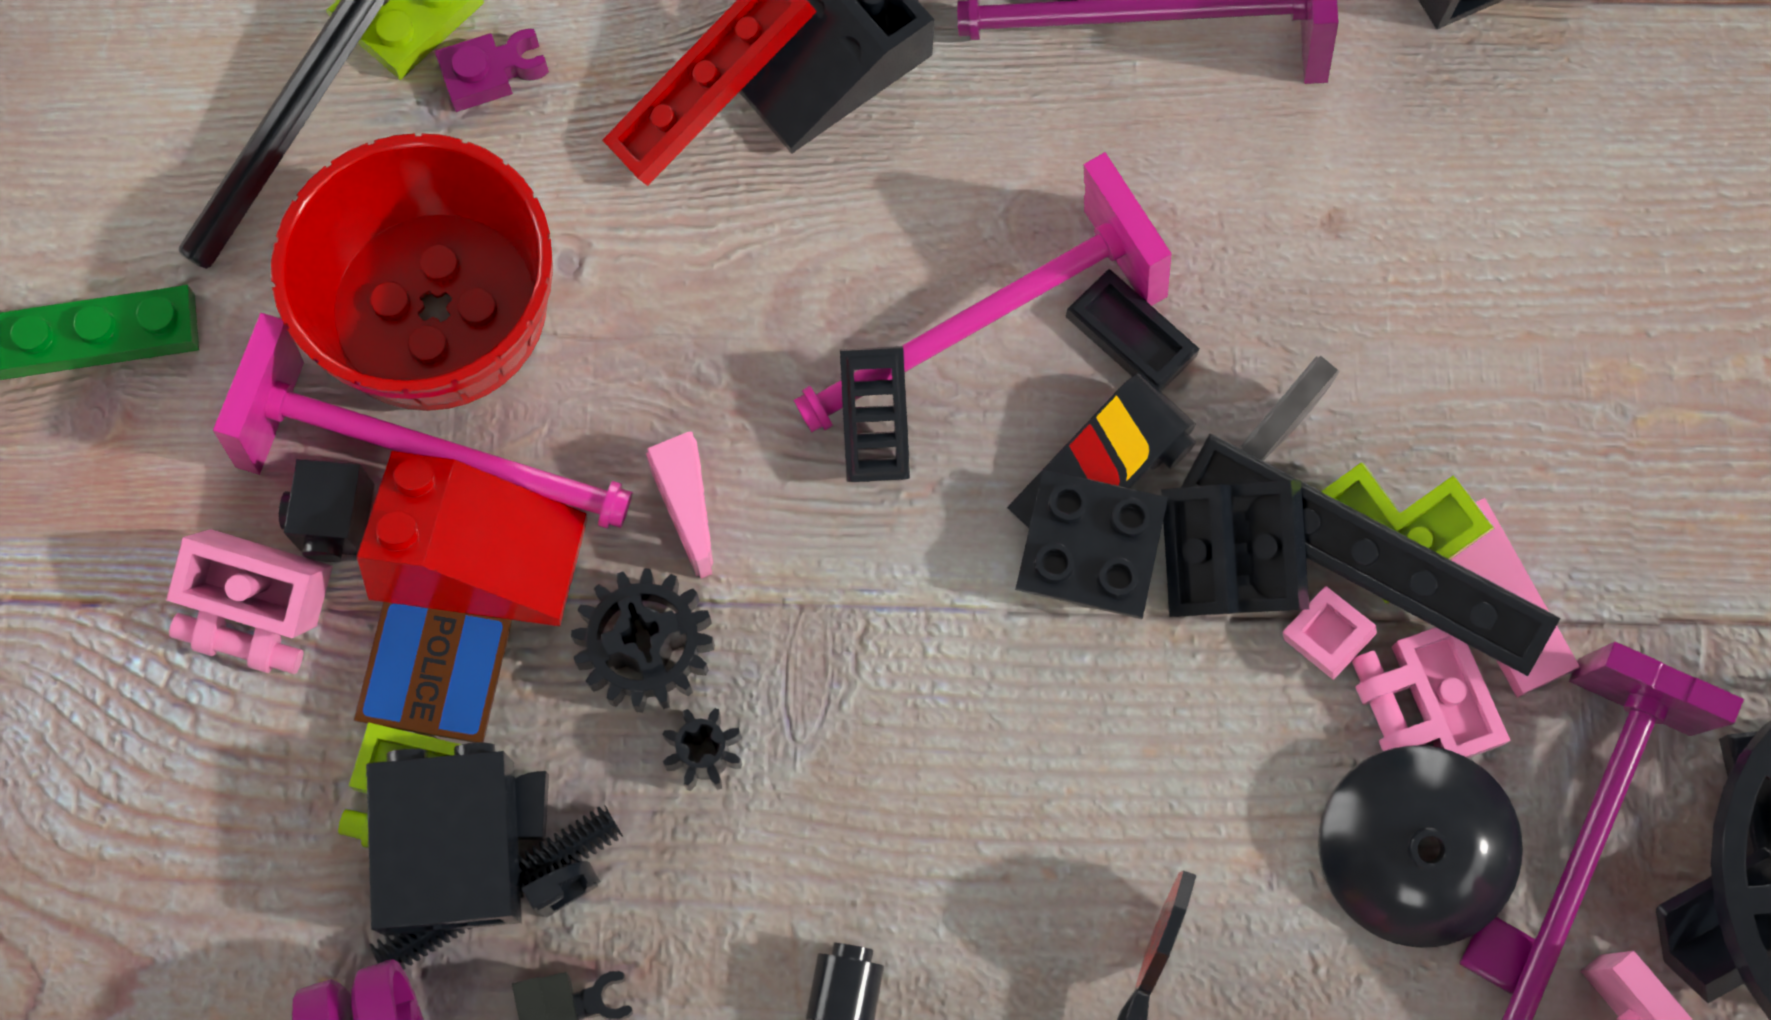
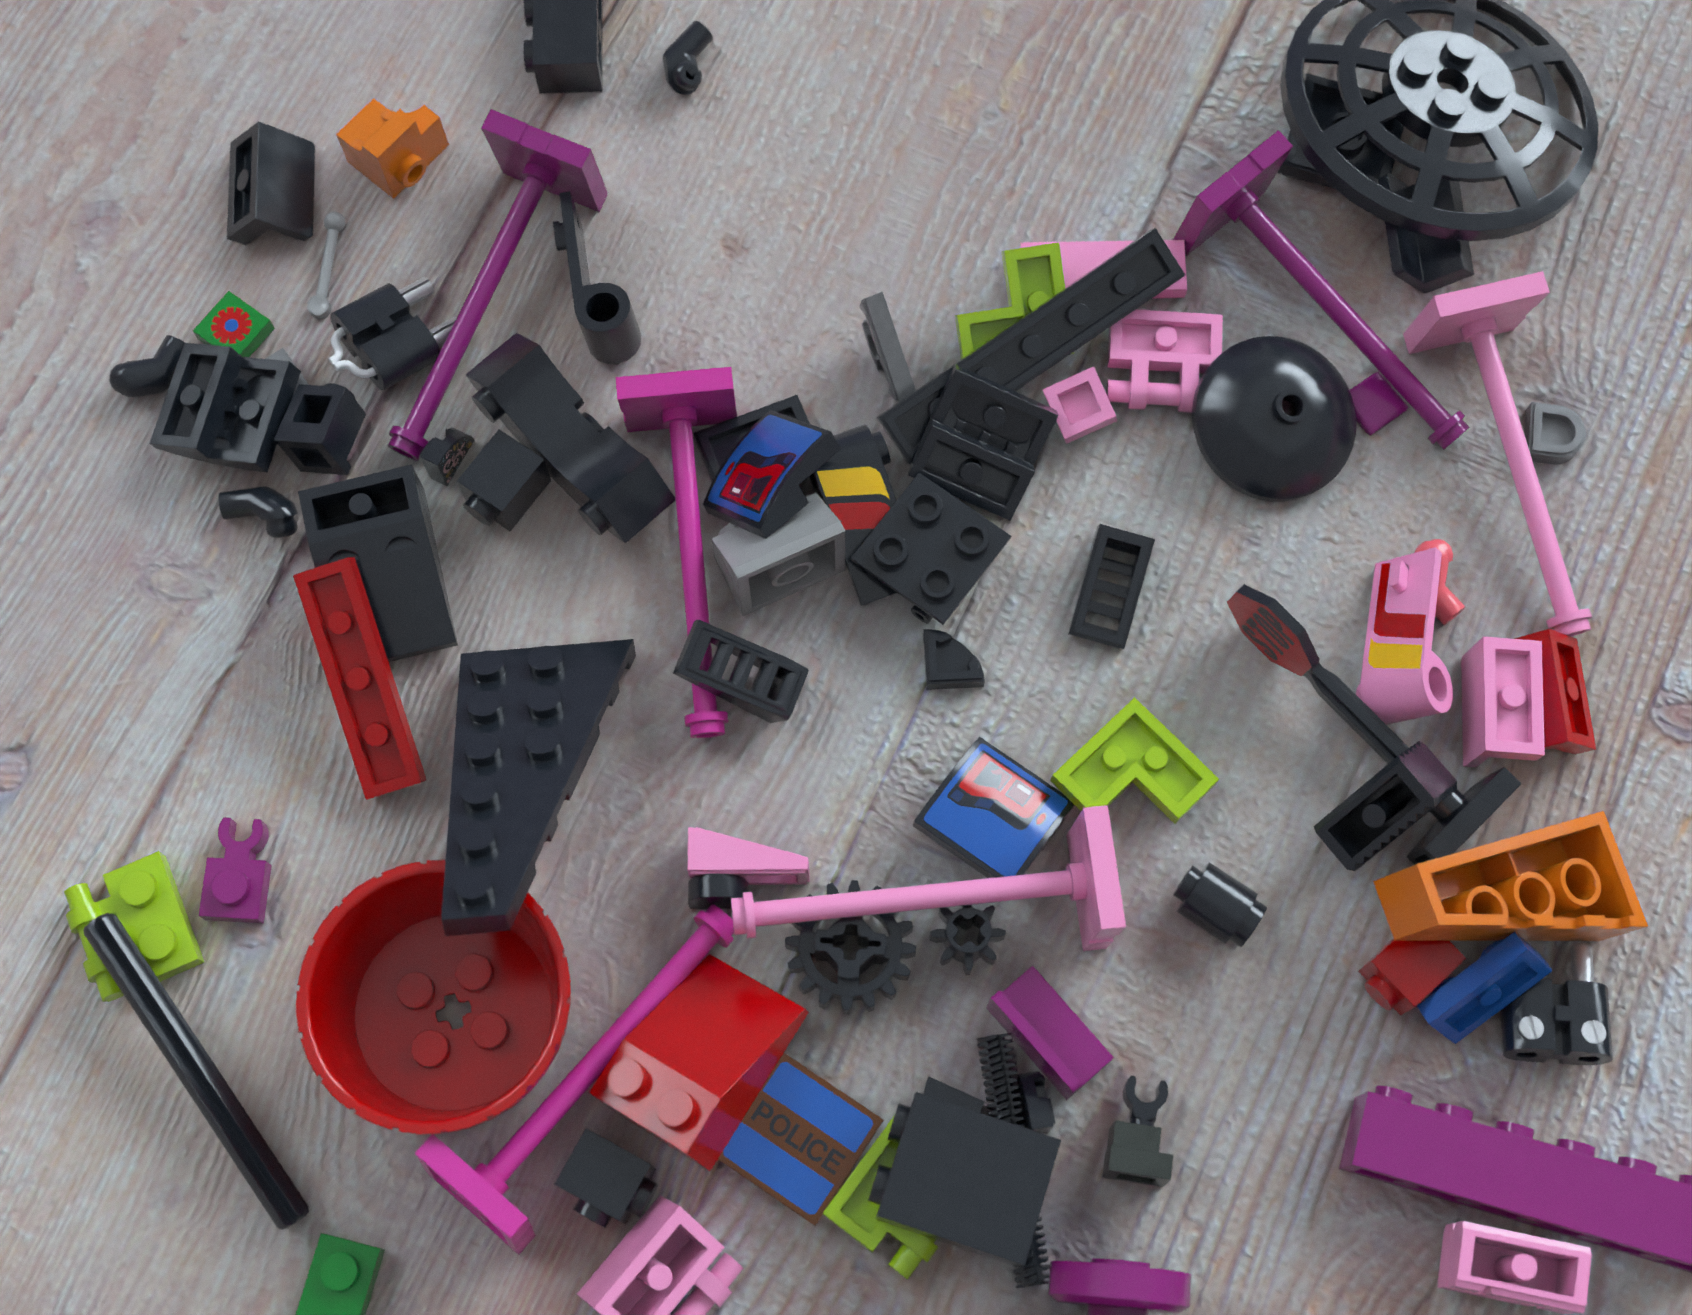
camera: 65 degrees left, 0 degrees up
(637, 873) = (1049, 1032): none -> magenta panel
(648, 494) = (715, 890): none -> black tile
(689, 240) = (517, 755): none -> black wing
(800, 839) = (1088, 879): none -> bright pink tile
(843, 726) = (993, 812): none -> slope
(969, 116) = (503, 481): none -> black brick
(973, 845) = (1136, 751): none -> lime plate
(975, 58) = (445, 456): none -> black tile
(985, 618) = (949, 663): none -> black tile
(1015, 397) = (789, 560): none -> light grey slope
(1035, 164) = (591, 464): none -> black brick
(1089, 342) = (763, 473): none -> slope
(1186, 113) = (601, 307): none -> black door
(1199, 734) = (1124, 542): none -> black slope
(1509, 83) = (680, 58): none -> black arm

